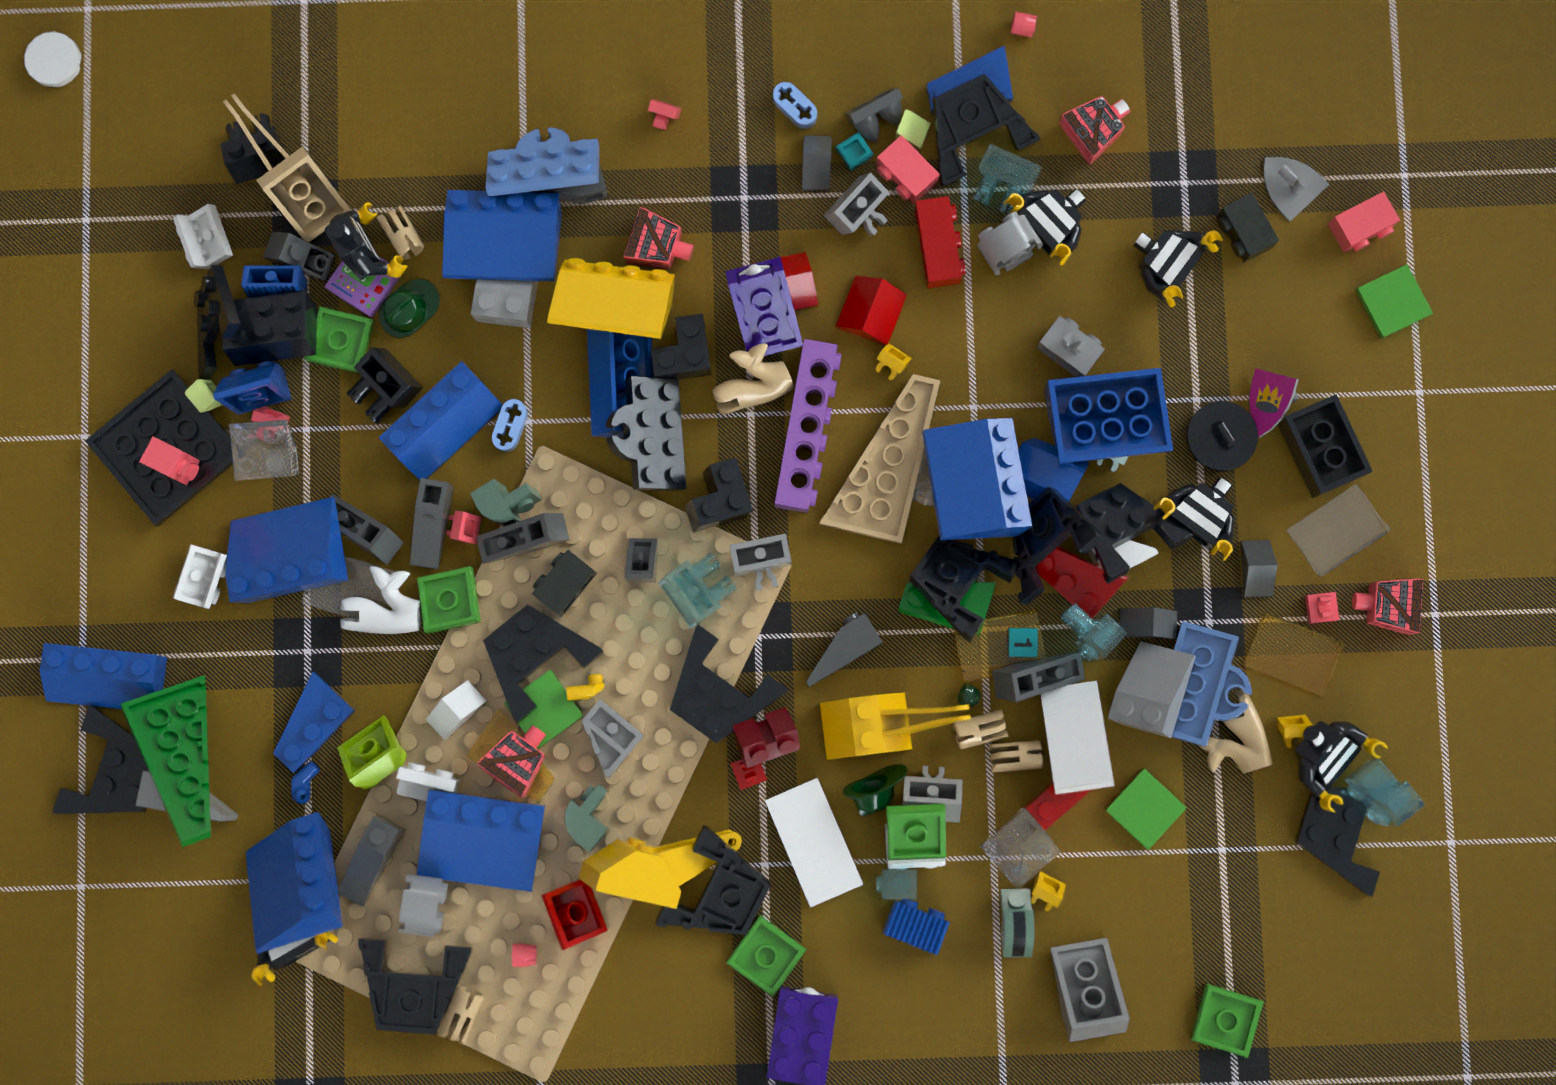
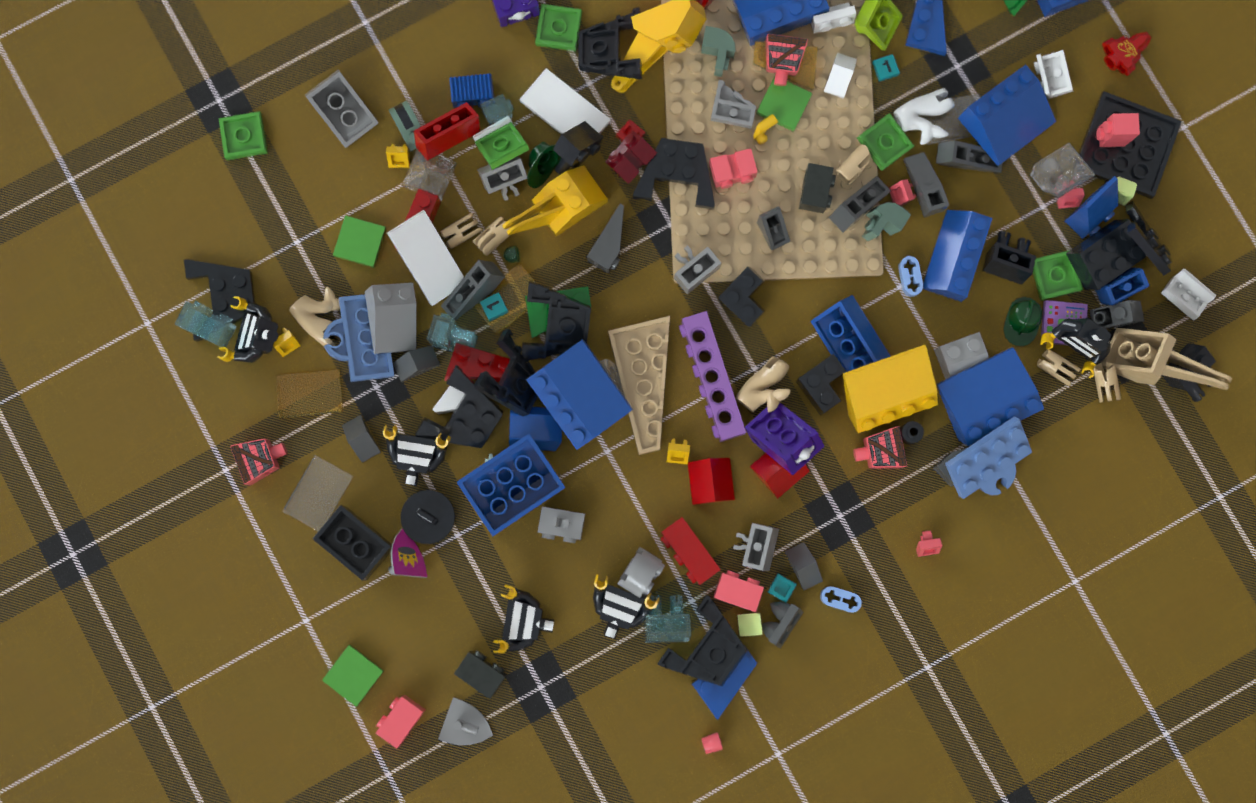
camera: 145 degrees right, 0 degrees up
(98, 560) = (1125, 52): none -> red rock
(356, 187) = (1106, 379): none -> tan arm
(395, 692) = (885, 67): none -> teal tile
(502, 587) = (854, 165): none -> tan arm
(527, 644) = (819, 136): black wing -> none
(613, 251) = (918, 431): none -> black brick
(649, 658) = (733, 168): none -> coral brick
(651, 433) = (813, 315): plate -> none
(690, 593) = (725, 219): clear light blue brick -> none
(827, 780) = (576, 146): none -> black brick
(974, 886) = (447, 131): none -> red brick
(1094, 126) = (623, 693): torso -> none
(1322, 607) = (304, 434): coral tile -> none

